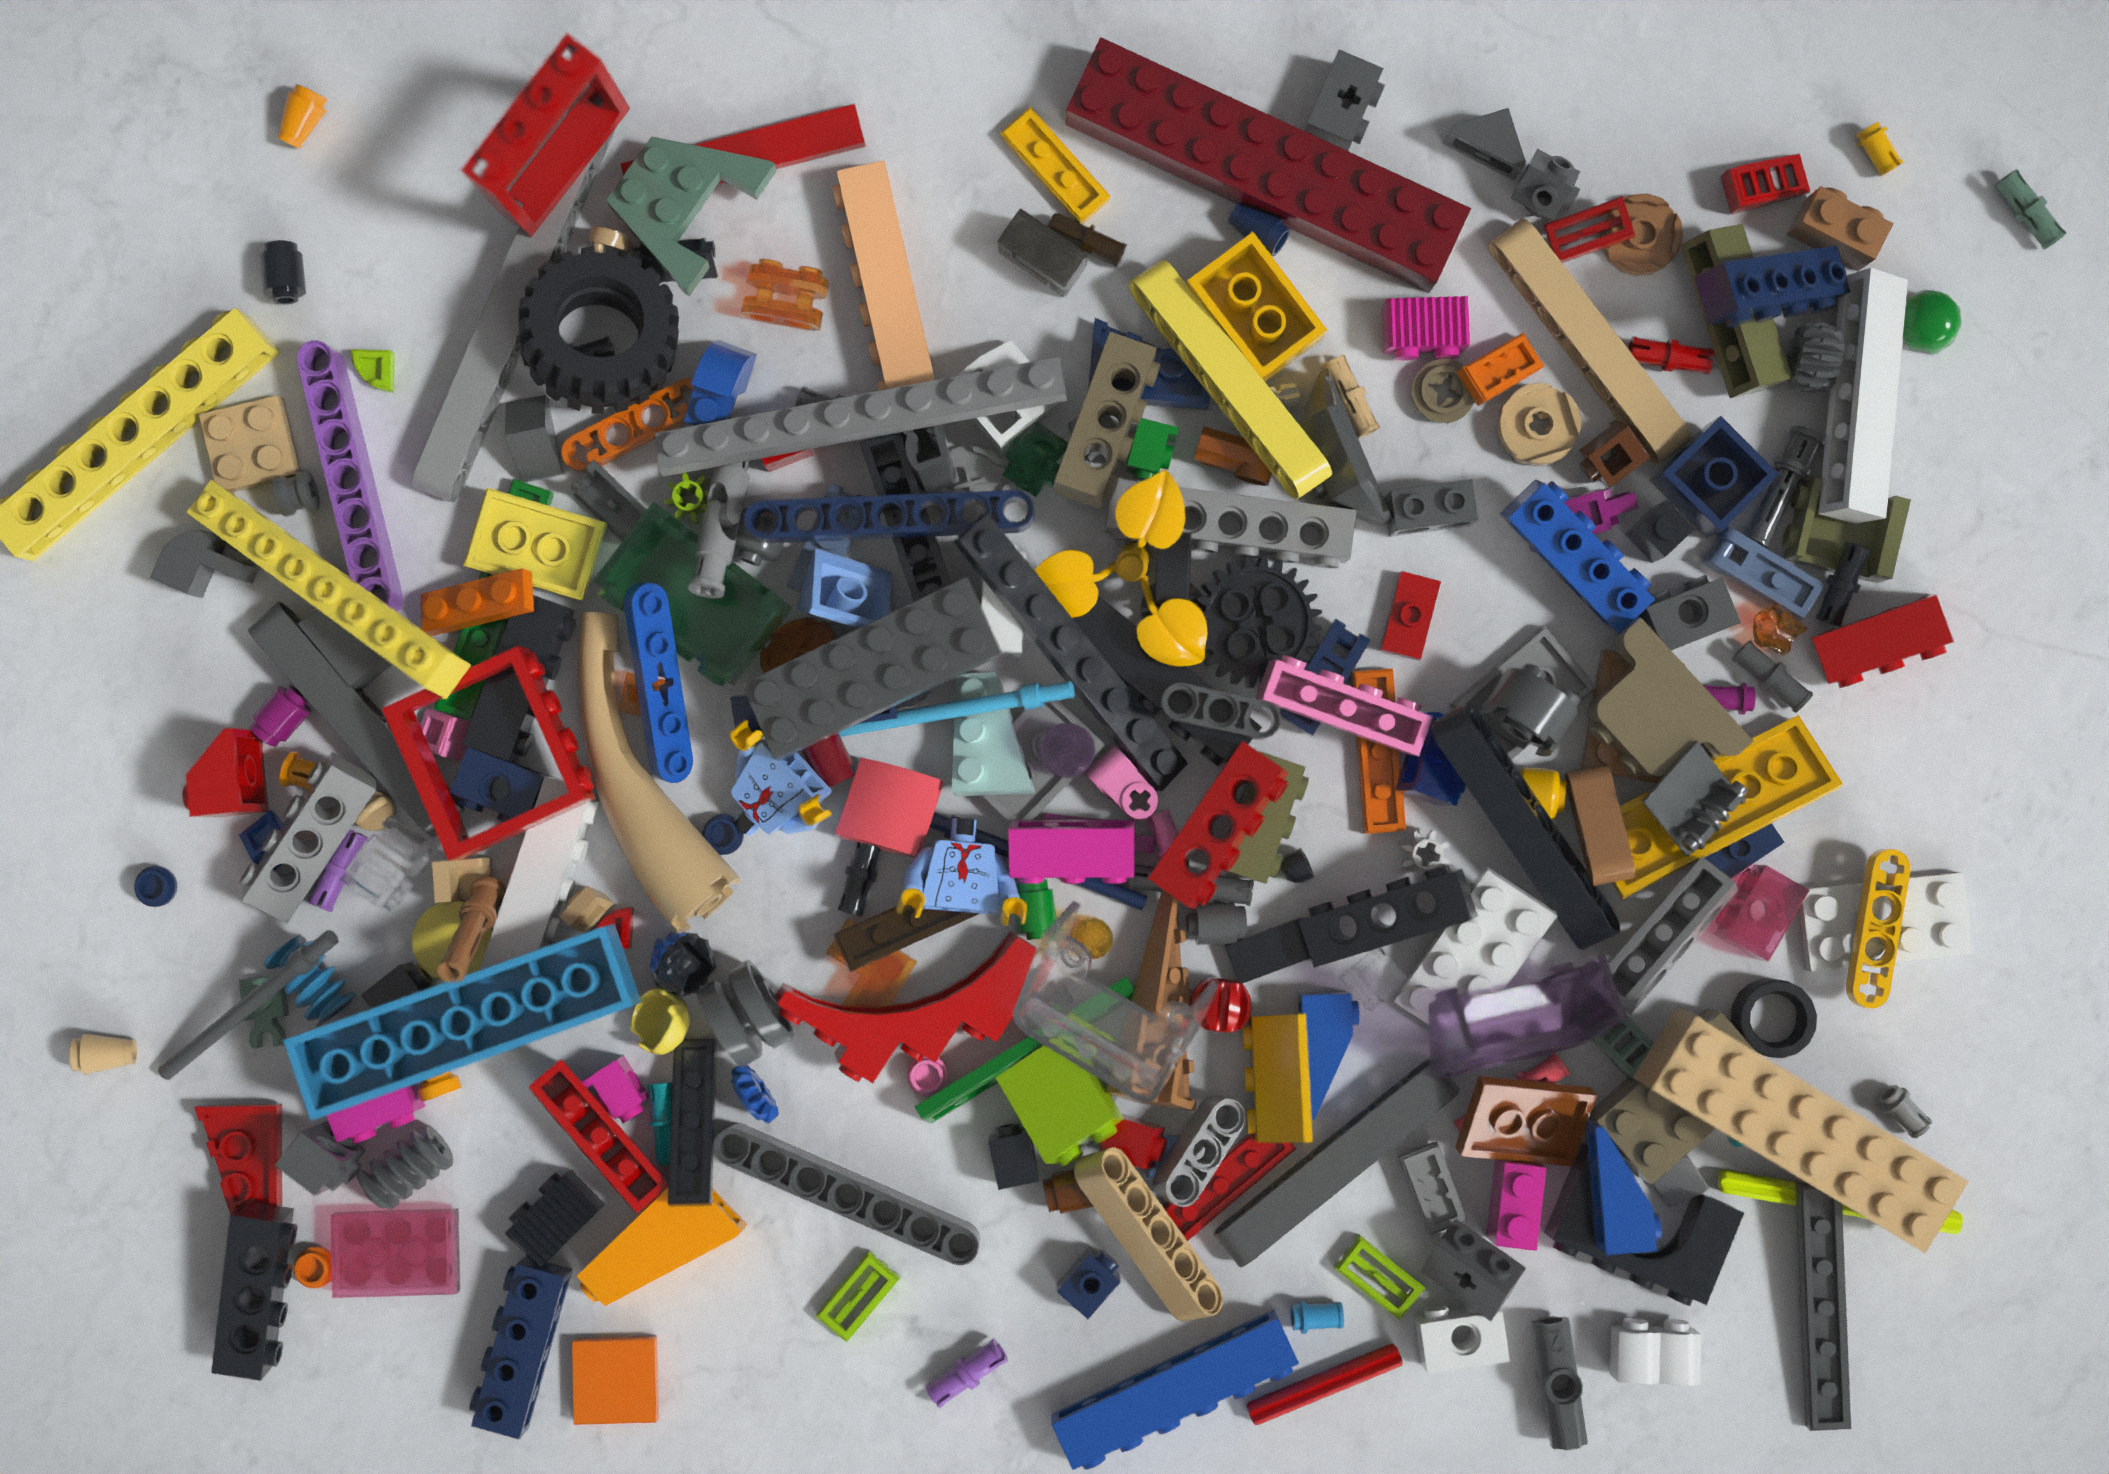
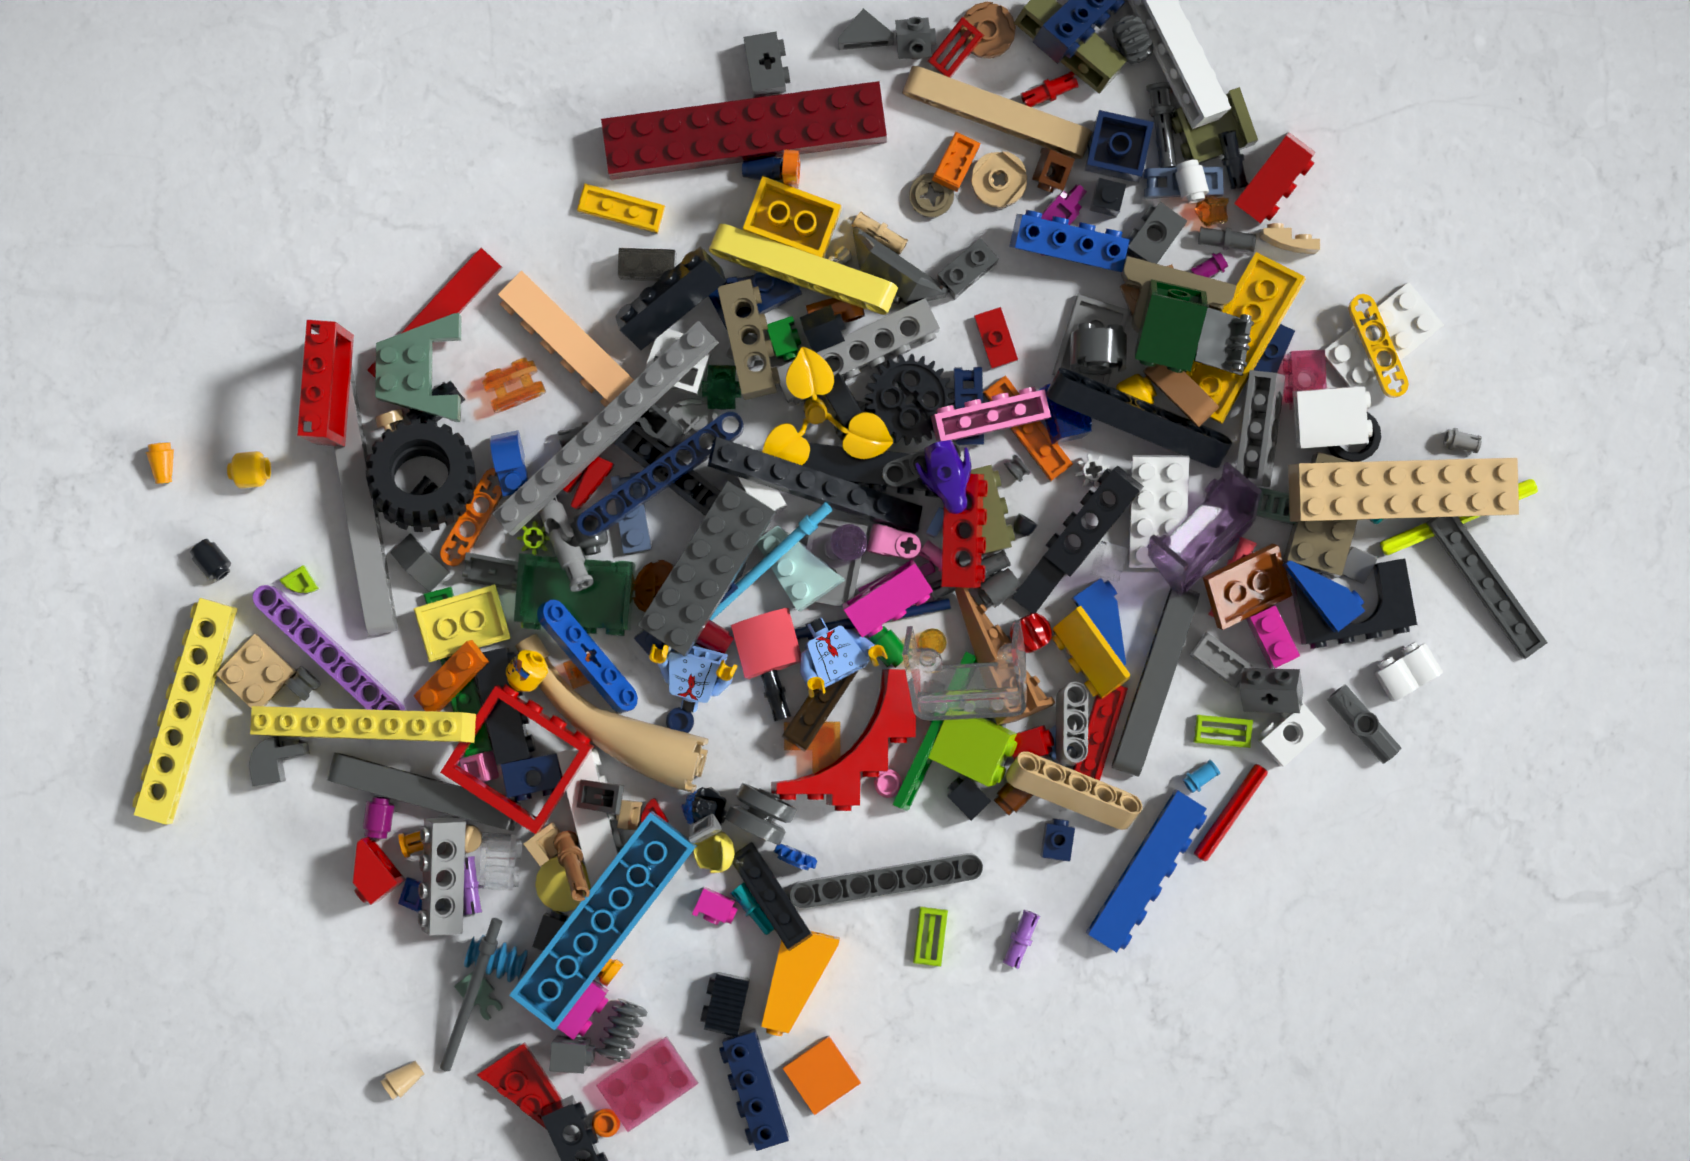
camera: 30 degrees left, 0 degrees up
(155, 886) = (369, 964): dark blue plate -> none
(345, 652) = (395, 754): dark grey brick -> none
(399, 192) = (249, 469): none -> yellow head
(562, 867) = (600, 796): none -> dark grey slope
(570, 652) = (526, 670): none -> yellow head
(598, 1136) = (721, 939): red brick -> none
(661, 988) = (704, 829): none -> light grey slope
(809, 469) = (591, 480): none -> red slope
(845, 590) = (660, 534): light blue slope -> none
(1043, 309) = (670, 298): none -> black brick
(1088, 239) = (667, 239): dark brown axle -> none
(1191, 795) = (936, 523): none -> medium blue tile
(1207, 467) = (823, 328): none -> black brick
(1244, 744) = (947, 474): none -> dark purple animal
(1296, 241) = (791, 168): none -> orange beam
(1334, 791) = (1017, 468): none -> dark grey bush
(1425, 326) = (896, 165): dark pink brick -> none
(1642, 740) = (1171, 326): none -> dark green slope
(1767, 980) = (1331, 417): none -> white brick
(1777, 577) = (1191, 181): none -> white brick
(1842, 719) = (1282, 238): none -> tan slope

